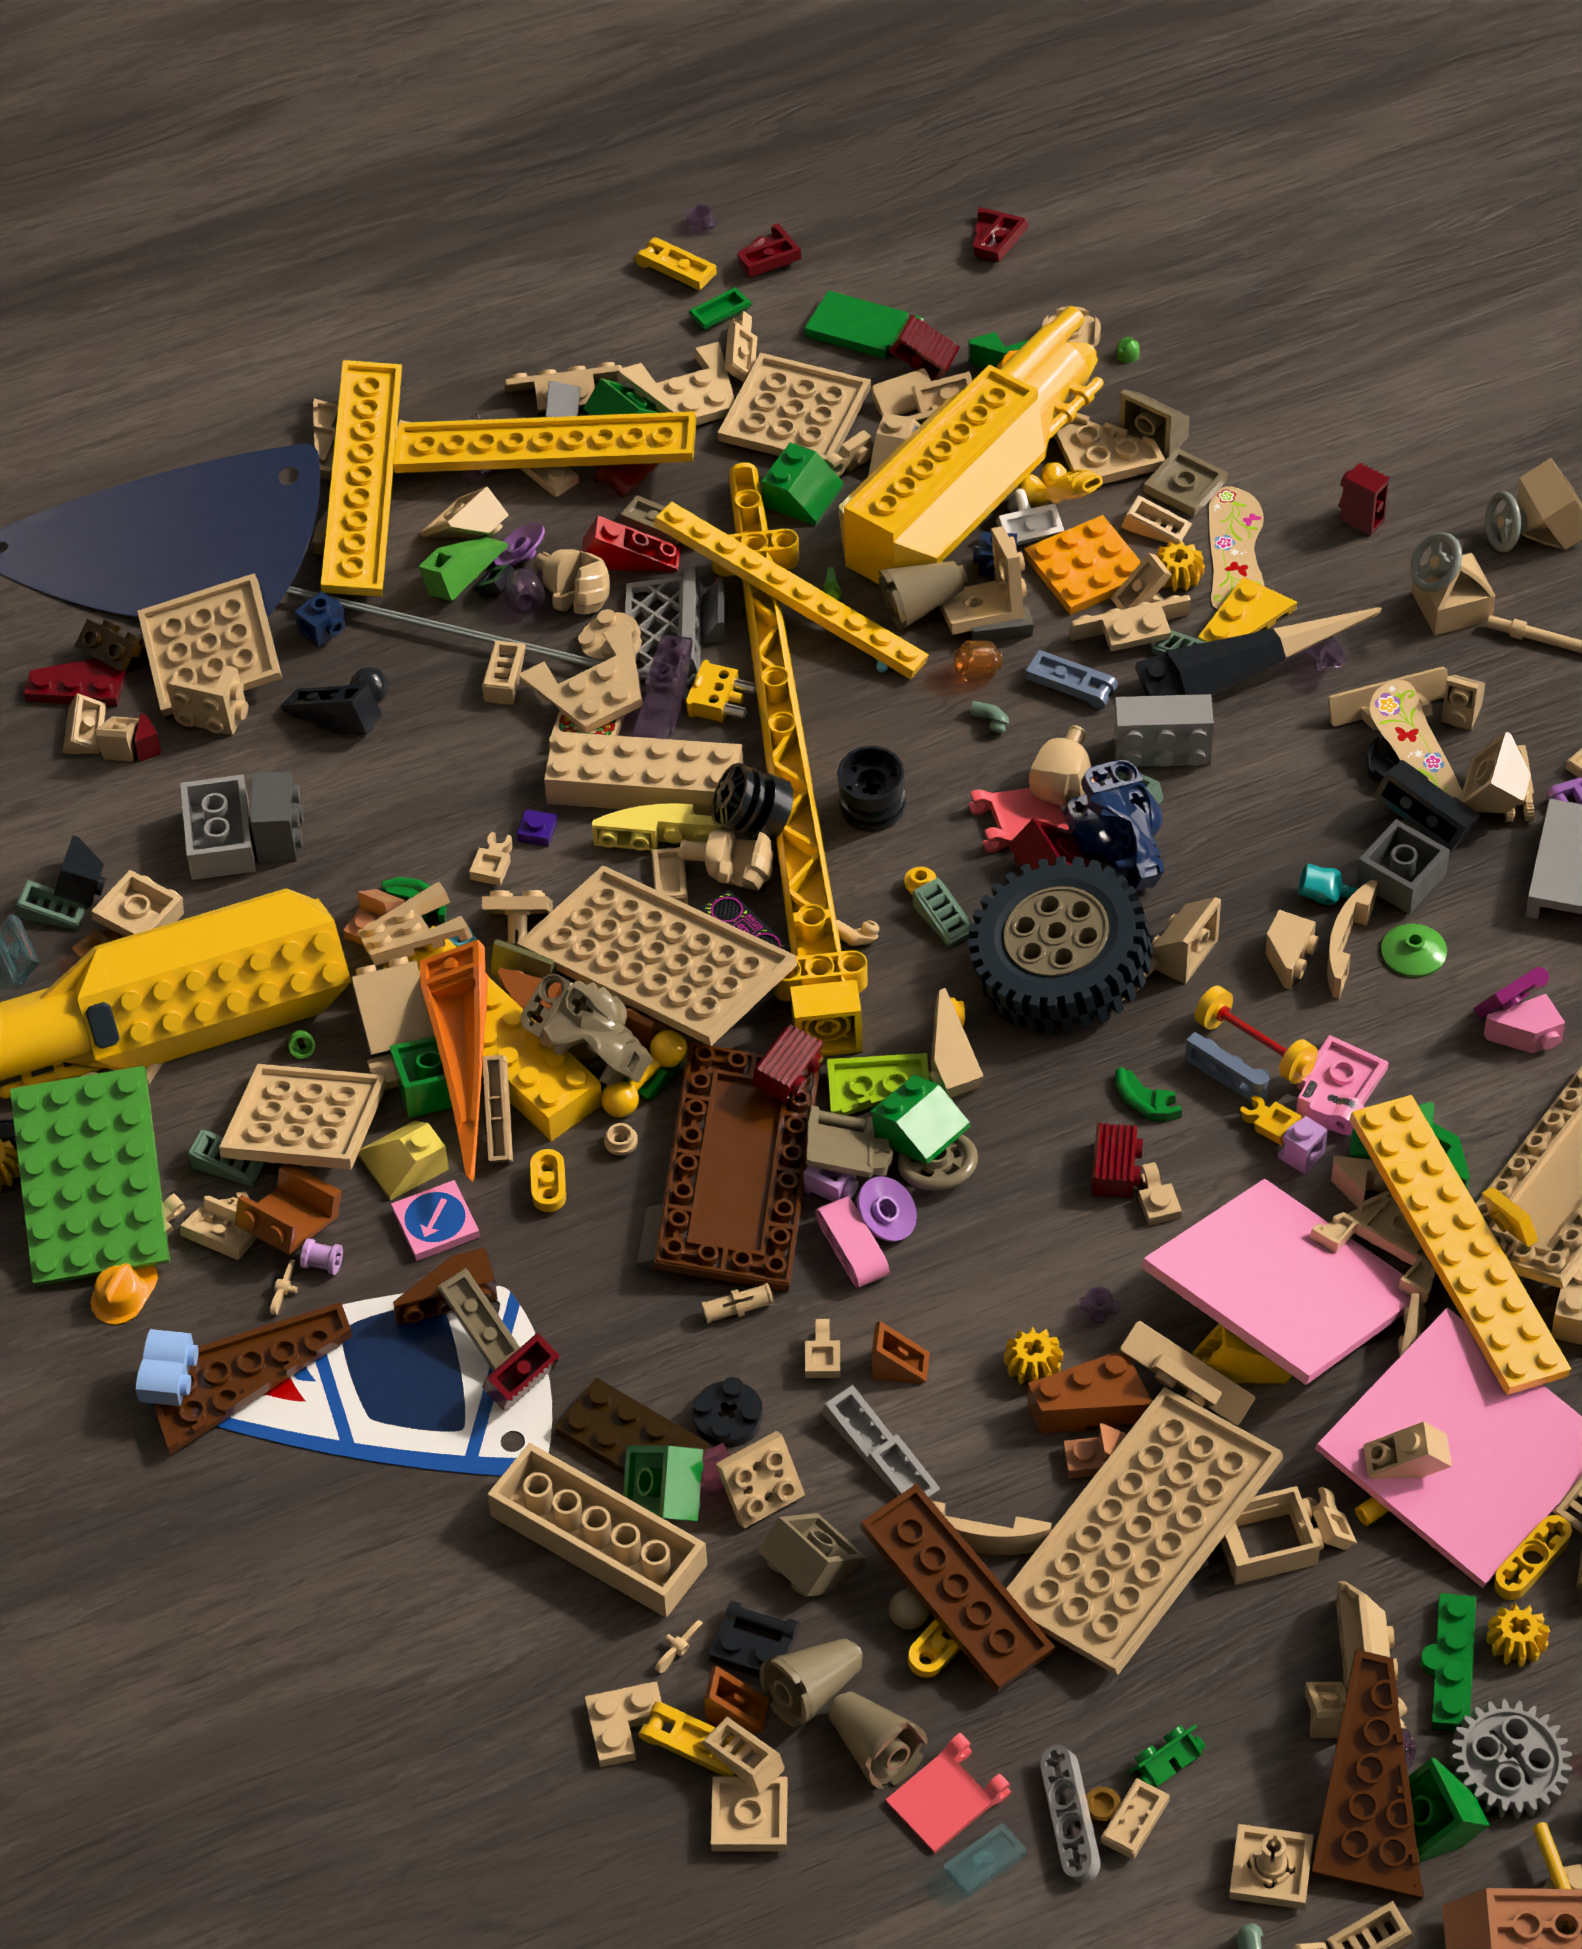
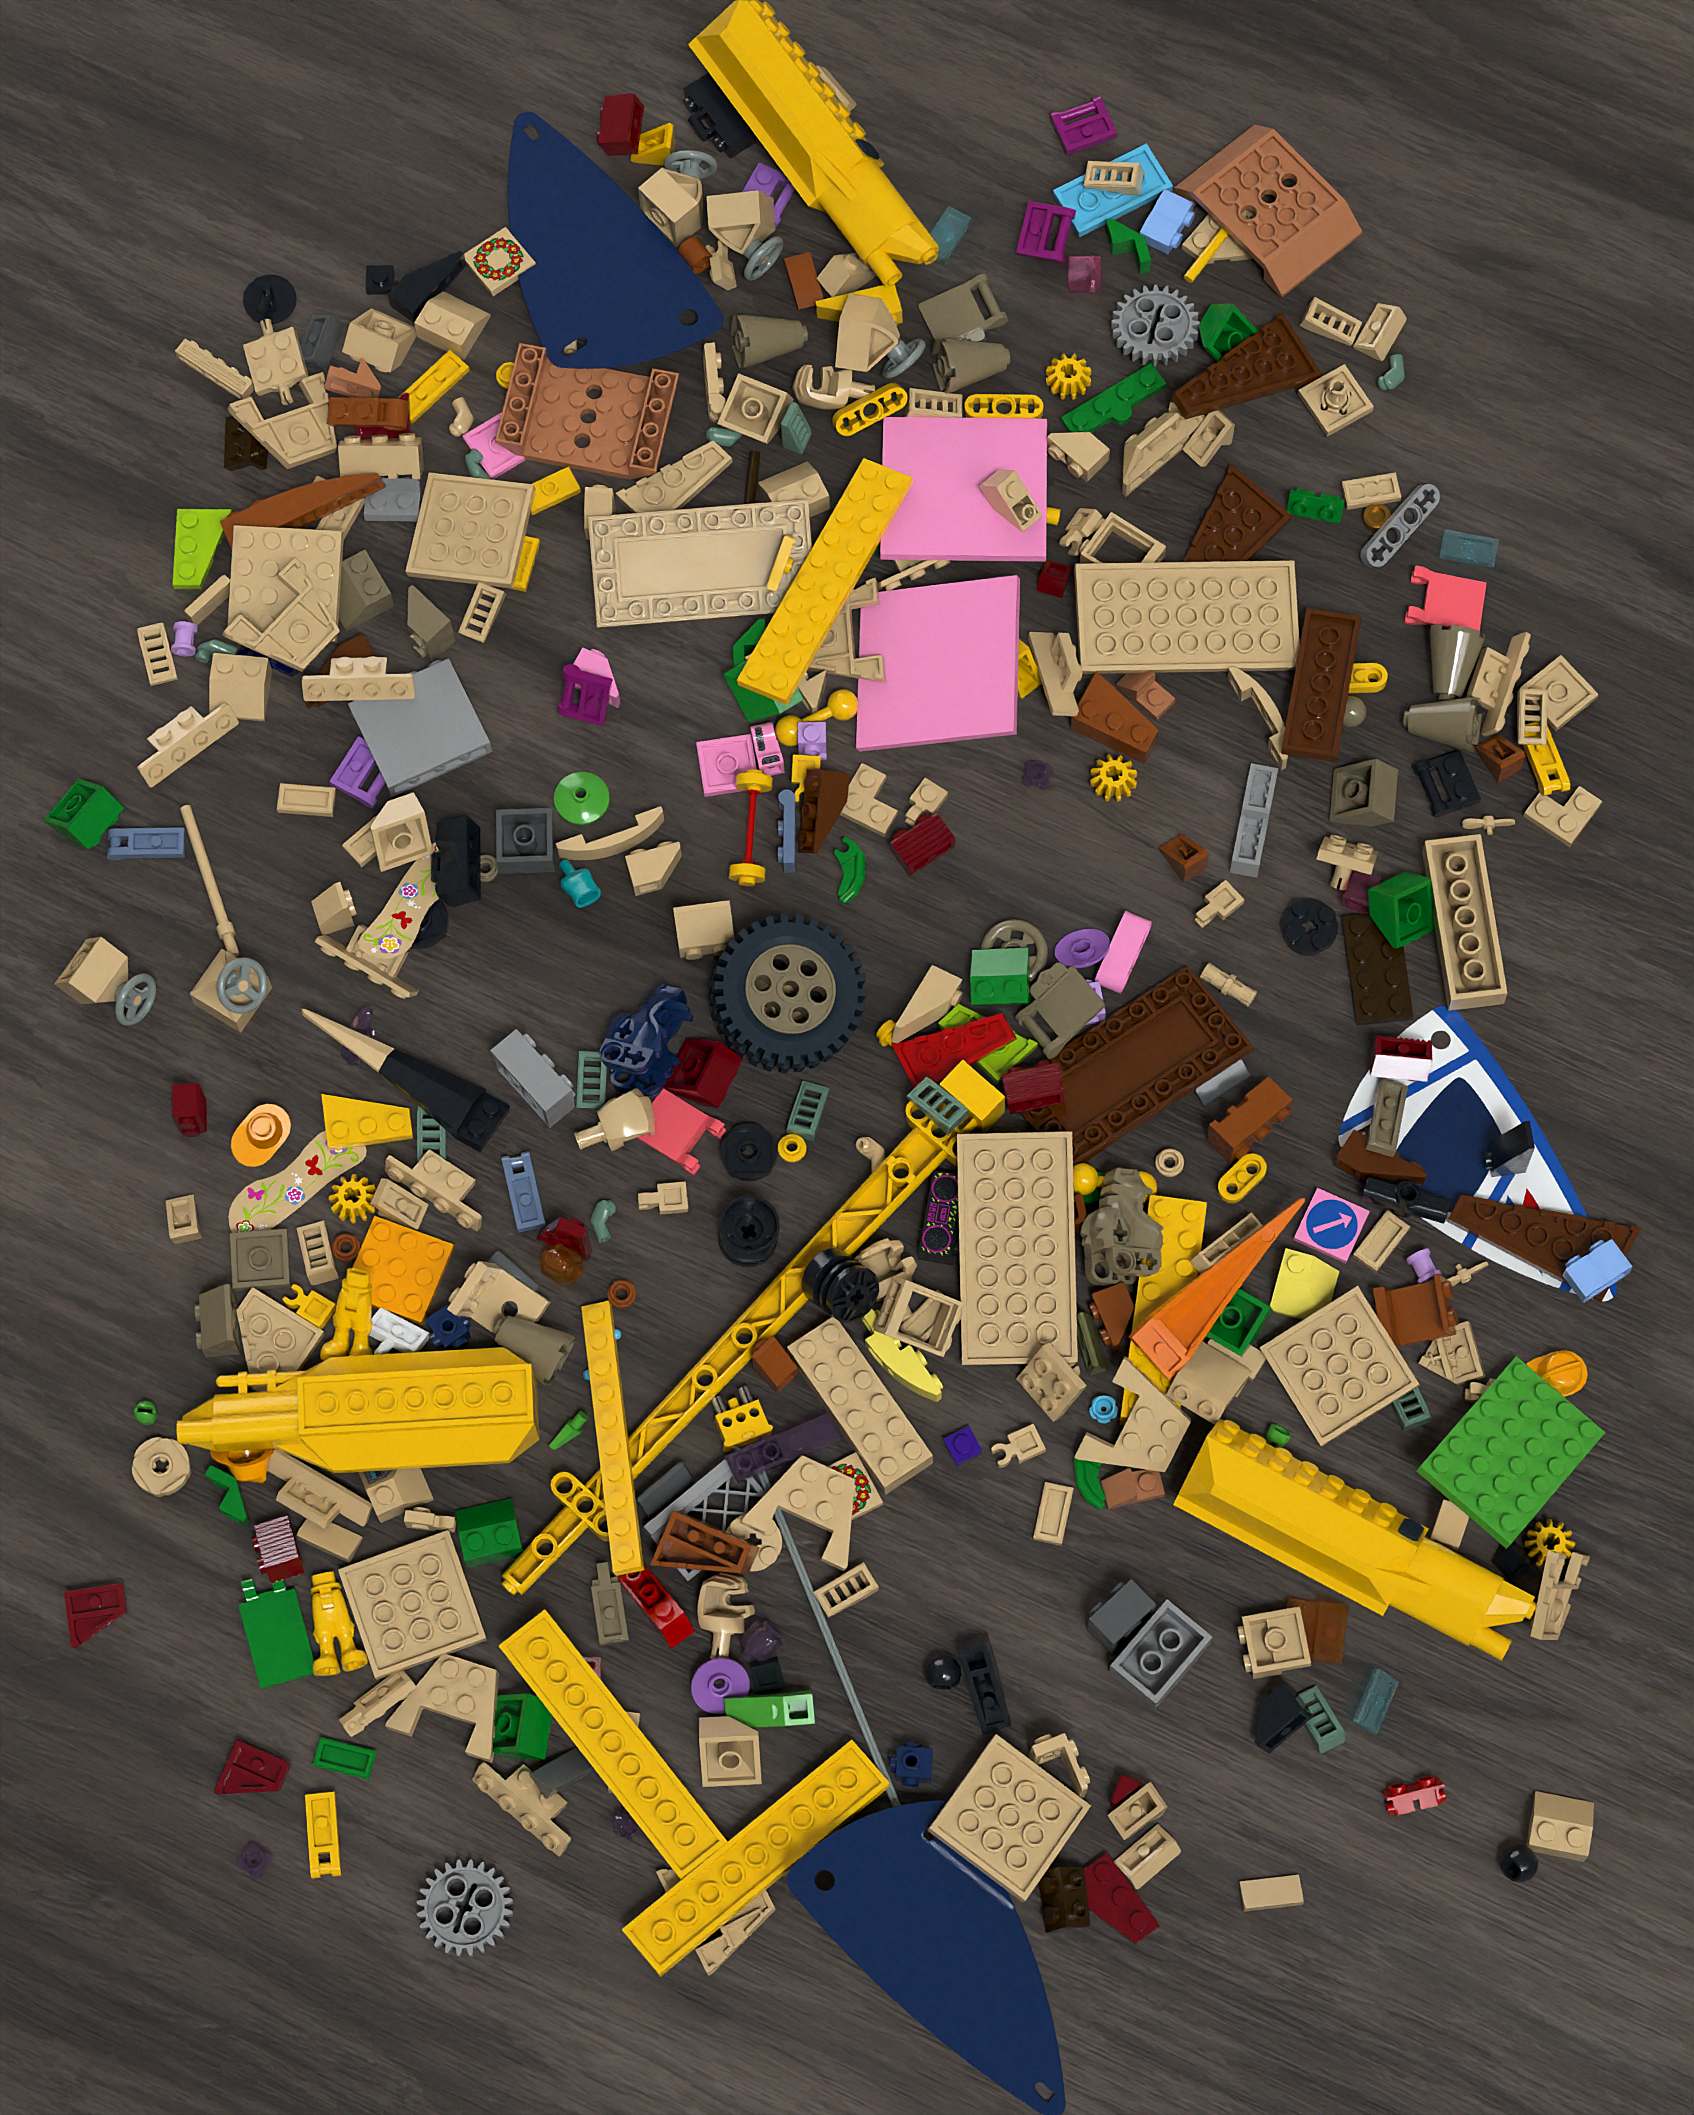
camera: 130 degrees left, 20 degrees up
(340, 1388) = (1510, 1151): none -> black slope
(374, 1293) = (1392, 1194): none -> black piece
(381, 1248) = (1381, 1241): none -> tan tile
(414, 850) = (1053, 1513): none -> tan tile
(512, 316) = (439, 1899): none -> light grey gear
(591, 1213) = (1249, 1120): none -> dark orange wedge
(632, 584) = (699, 1546): none -> dark orange wedge
(655, 830) = (895, 1307): none -> tan window
(740, 727) = (773, 1364): none -> dark orange slope
(819, 1762) = (1495, 681): none -> tan bracket
(826, 961) = (947, 1125): none -> sand green slope
(829, 353) = (330, 1621): none -> yellow piece
(887, 1038) = (941, 1052): none -> red wing
(912, 688) = (621, 1285): none -> dark orange plate
(947, 863) = (737, 1141): none -> black plate
(964, 768) = (670, 1198): none -> tan plate
(990, 660) = (569, 1233): none -> dark red wing
(1113, 490) = (312, 1308): none -> yellow plate
(1141, 541) = (342, 1240): none -> dark orange plate
(1201, 1147) = (863, 806): none -> tan plate
(1209, 1661) = (1237, 522): none -> reddish brown wing
(1226, 1107) = (823, 801): none -> reddish brown slope
(1265, 444) = (183, 1219): none -> tan slope
(1296, 533) = (260, 1135): none -> light orange piece
(1300, 1468) = (1054, 578): none -> dark red slope
(1318, 1190) = (840, 705): none -> yellow piece
(1417, 1581) = (1079, 451): none -> tan slope

